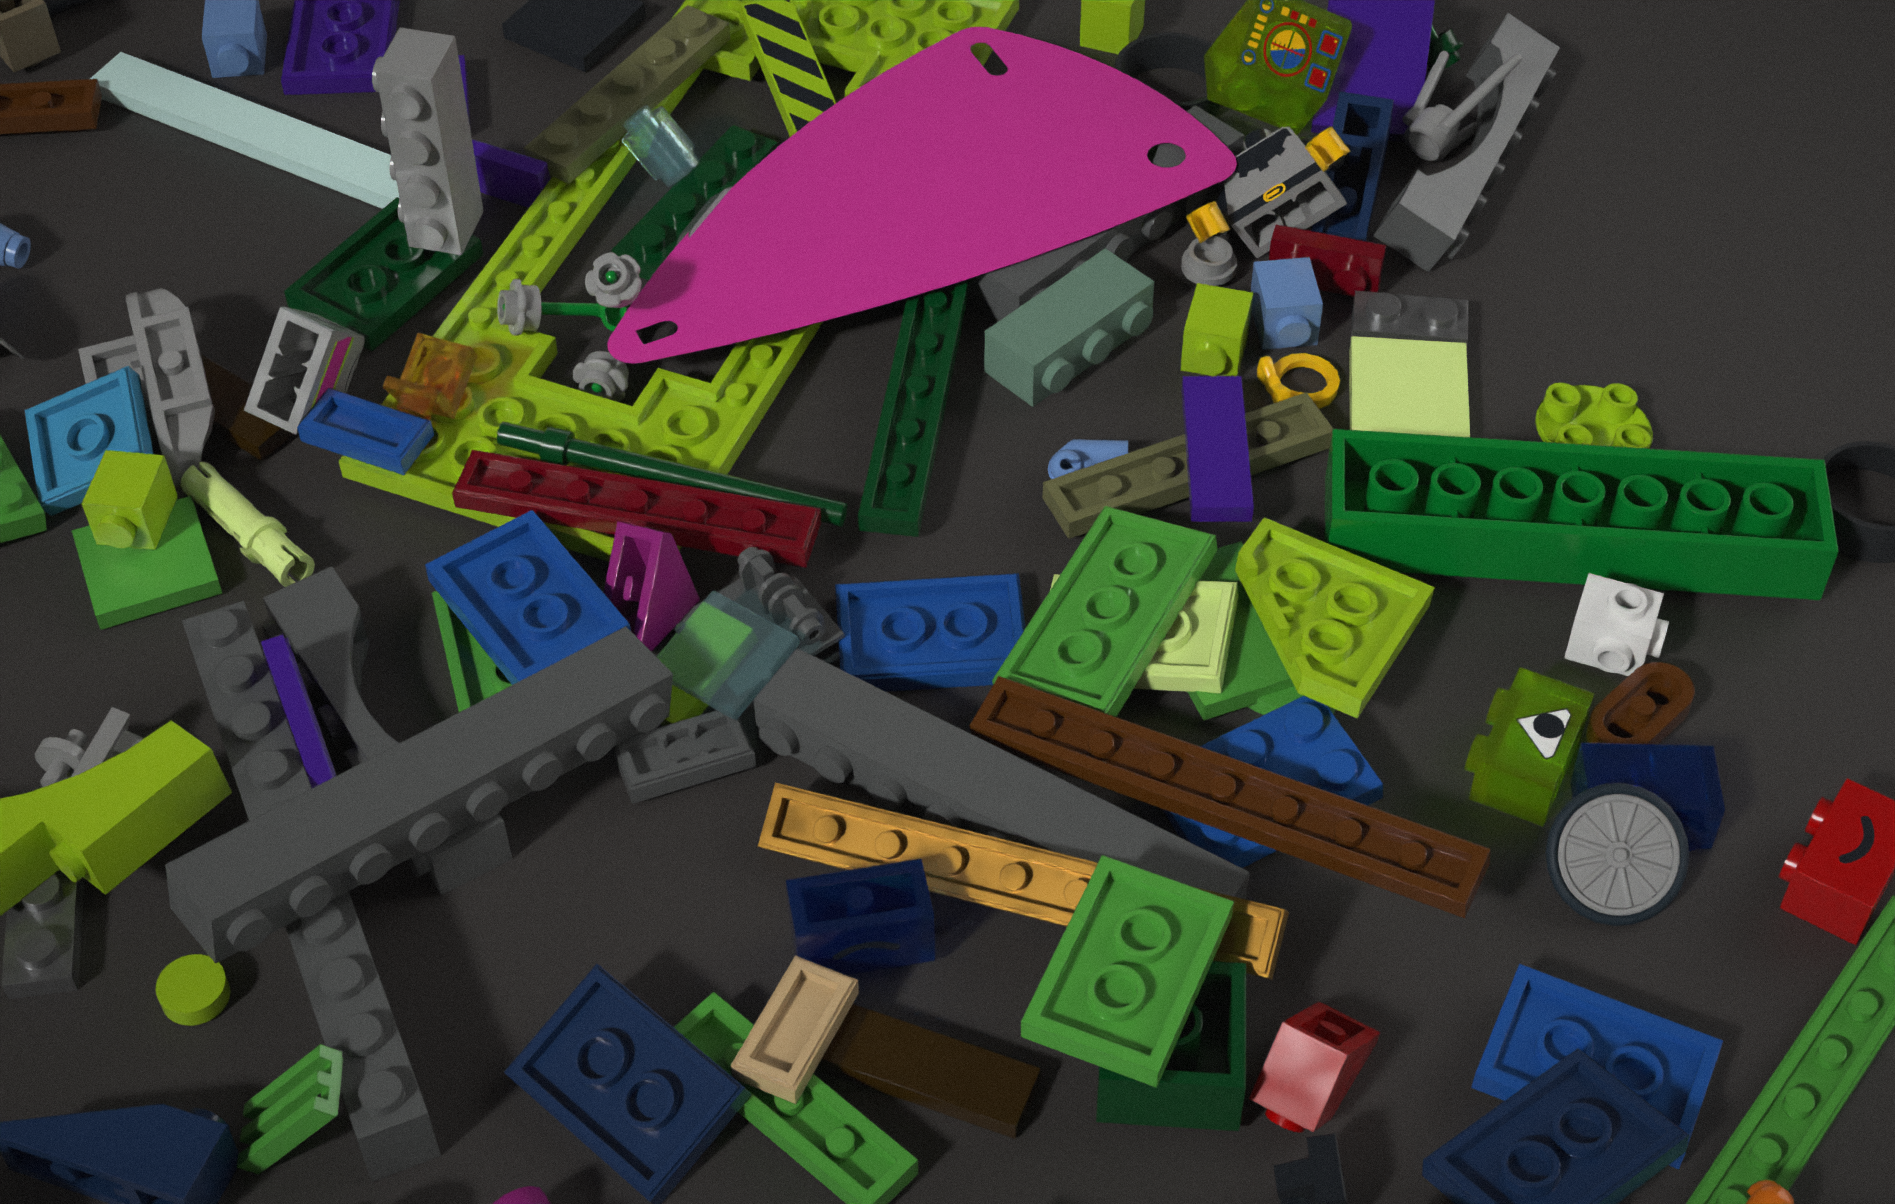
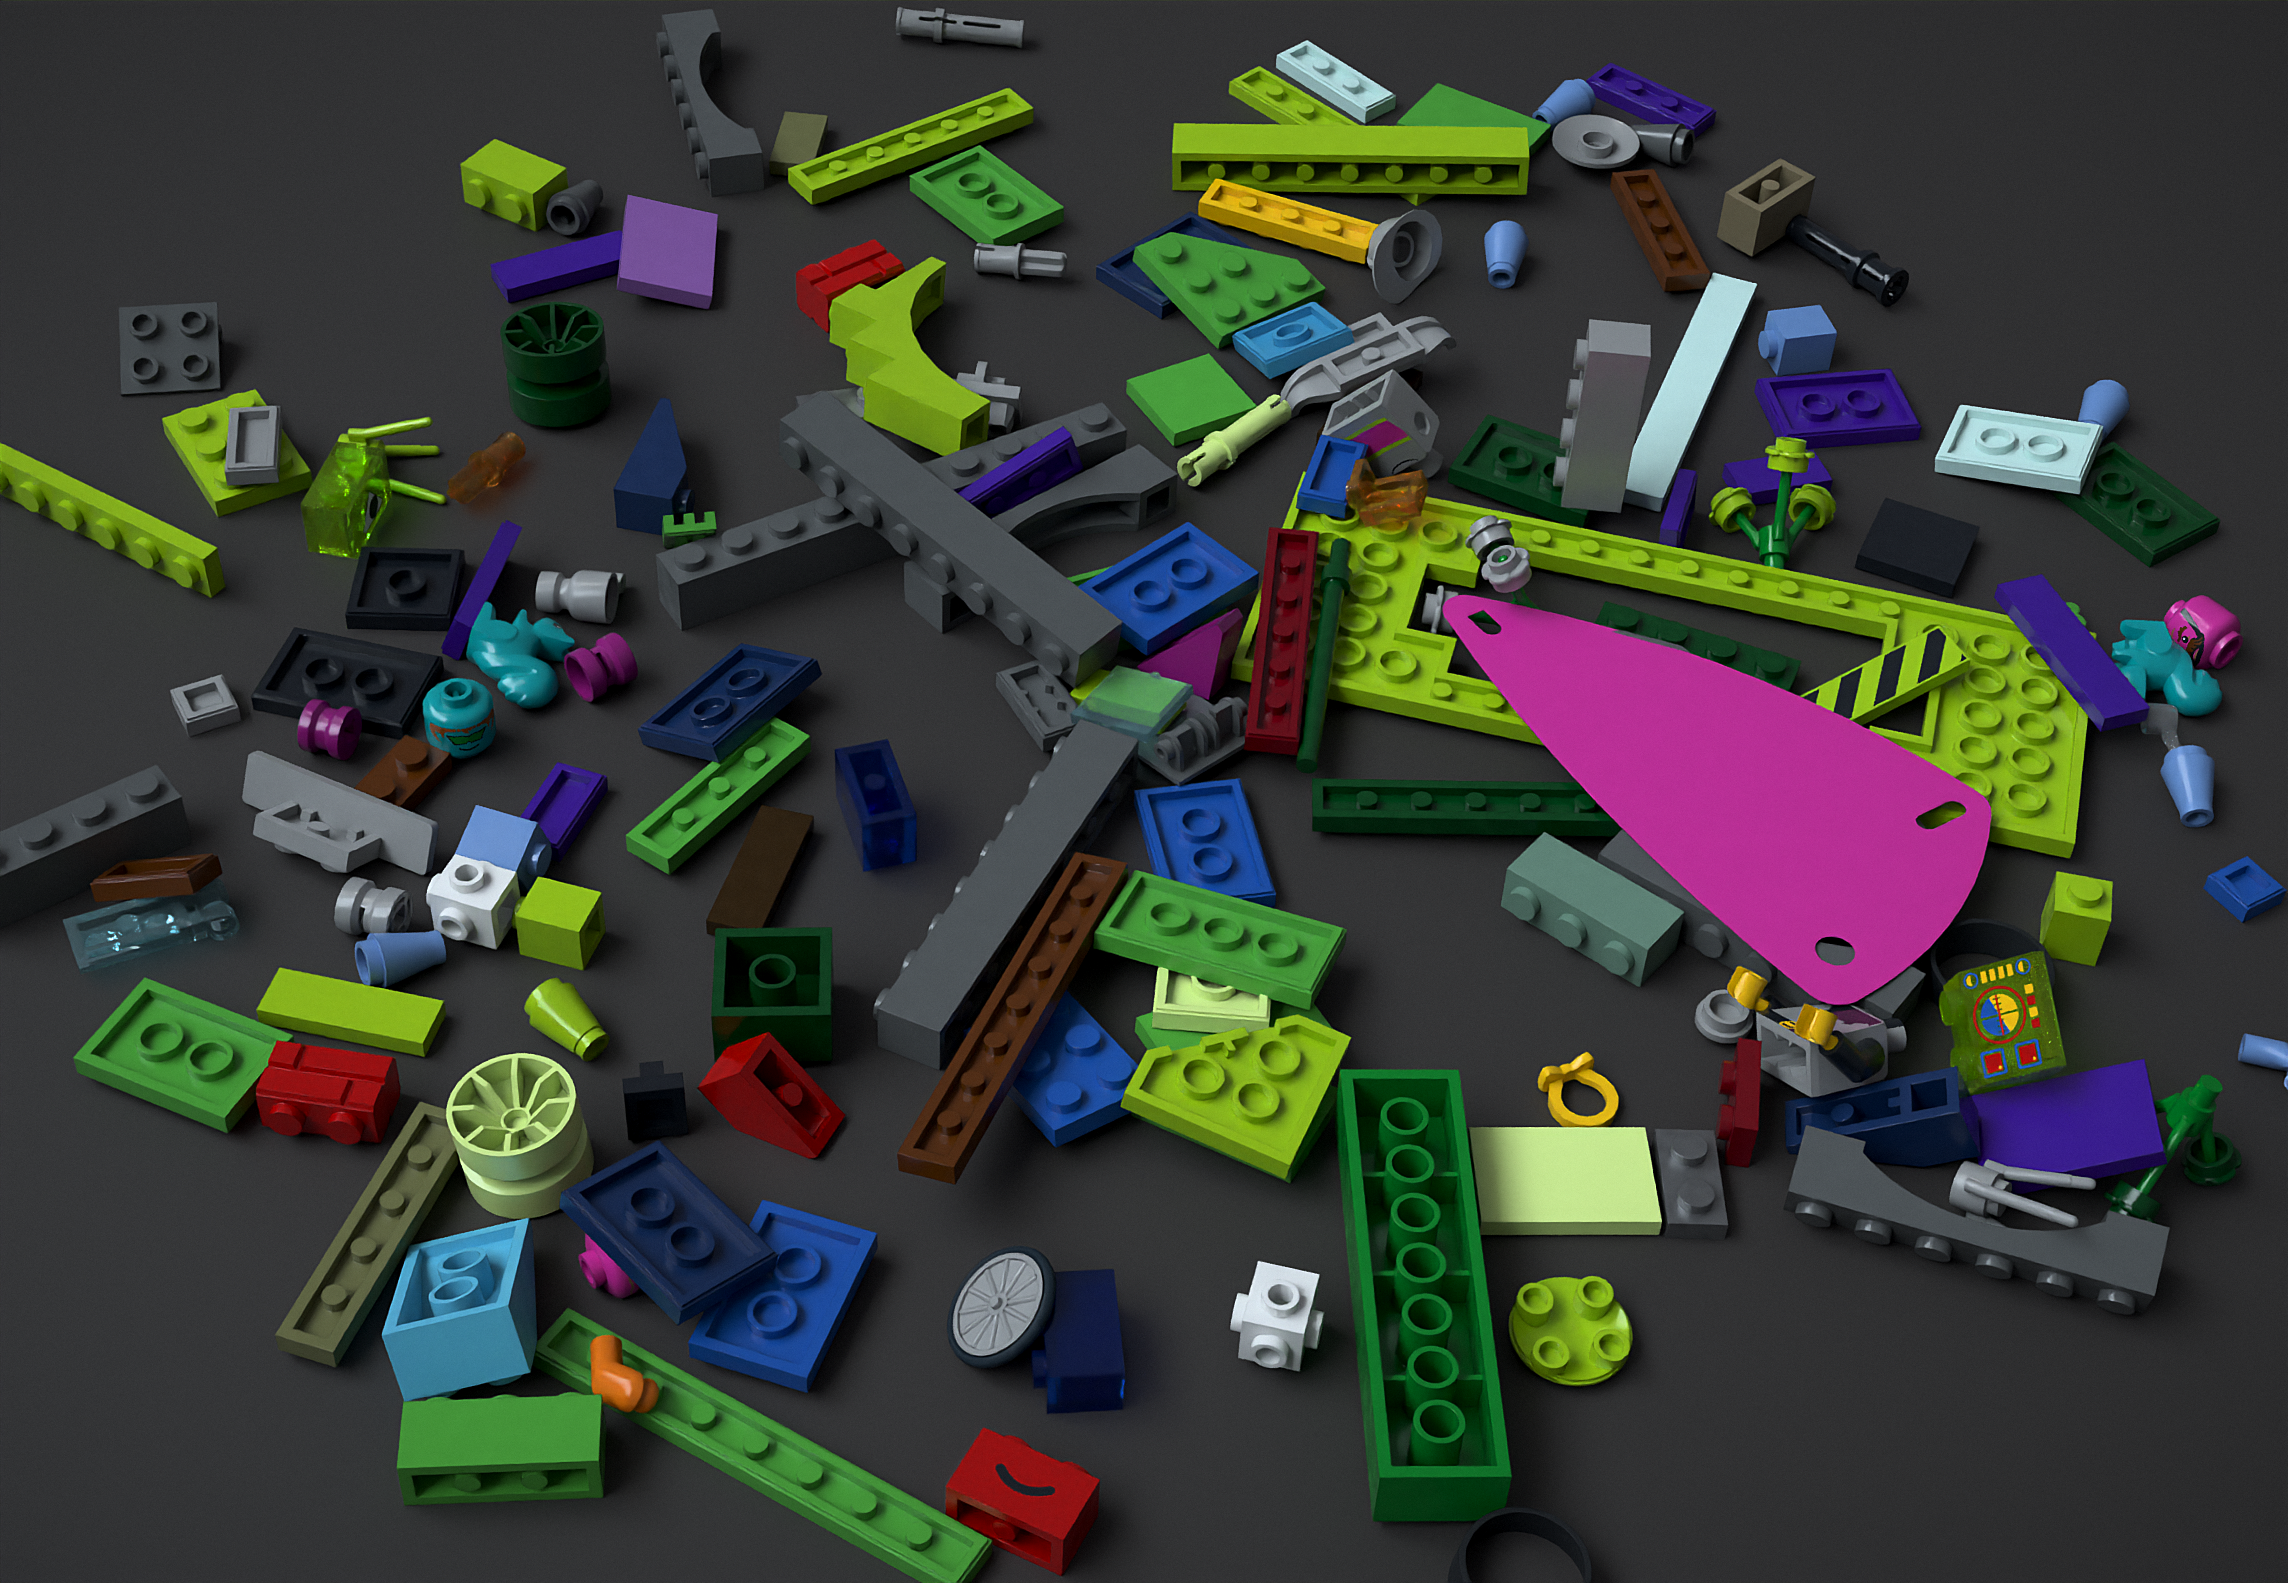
camera: 80 degrees right, 5 degrees down
(130, 500) = (1225, 364): lime brick -> none
(193, 989) = (797, 488): lime tile -> none
(506, 78) = (1808, 507): none -> lime plant
(641, 79) = (1802, 577): olive plate -> none
(659, 144) = (1737, 604): clear light blue brick -> none
(795, 1029) = (774, 777): tan tile -> none
(979, 866) = (919, 901): pearl gold tile -> none
(1084, 453) = (1428, 933): medium blue arm -> none
(1127, 970) = (804, 926): bright green plate -> none
(1159, 471) = (1439, 1009): olive plate -> none
(1216, 331) = (1614, 1017): lime brick -> none
(1217, 449) = (1441, 1008): dark purple tile -> none
(1286, 303) = (1671, 1070): medium blue brick -> none
(1529, 745) = (1146, 1249): clear neon green brick -> none
(1631, 708) = (1190, 1347): reddish brown plate -> none

